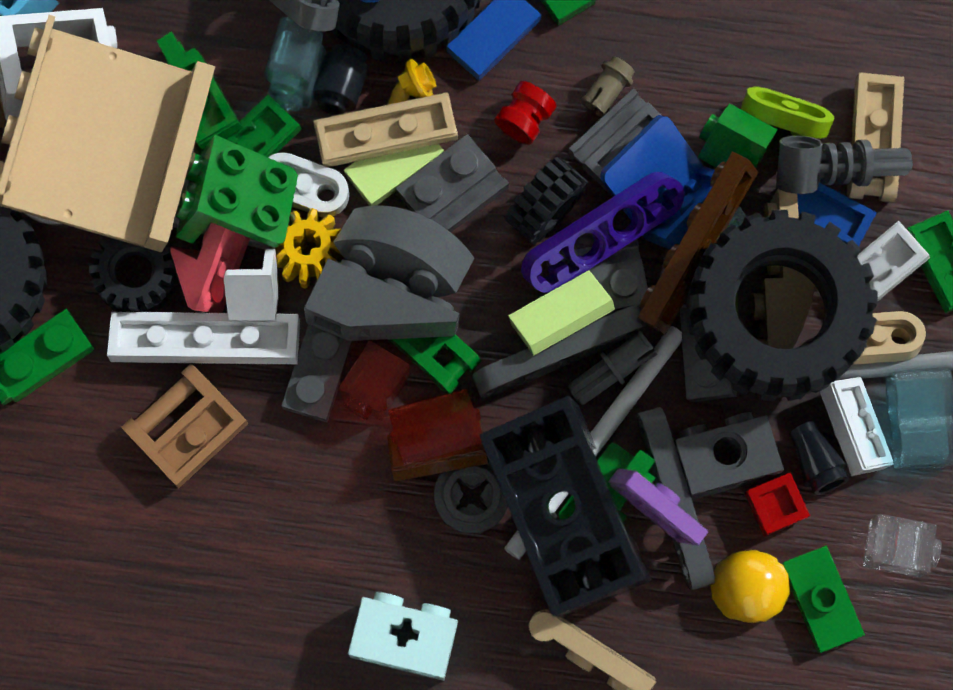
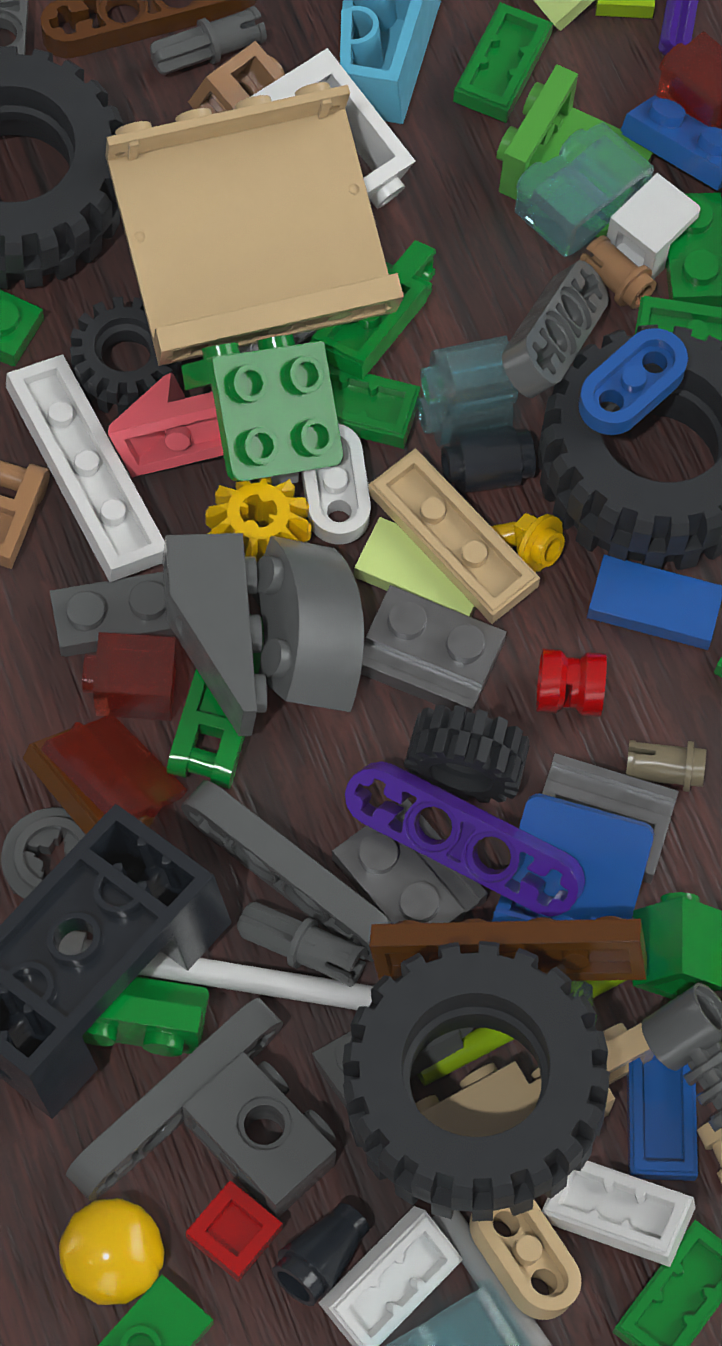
camera: 60 degrees right, 10 degrees down
(253, 292) = (165, 487): white panel -> none
(561, 312) = (332, 838): yellowish green tile -> none
(658, 505) = (137, 1057): medium lavender plate -> none

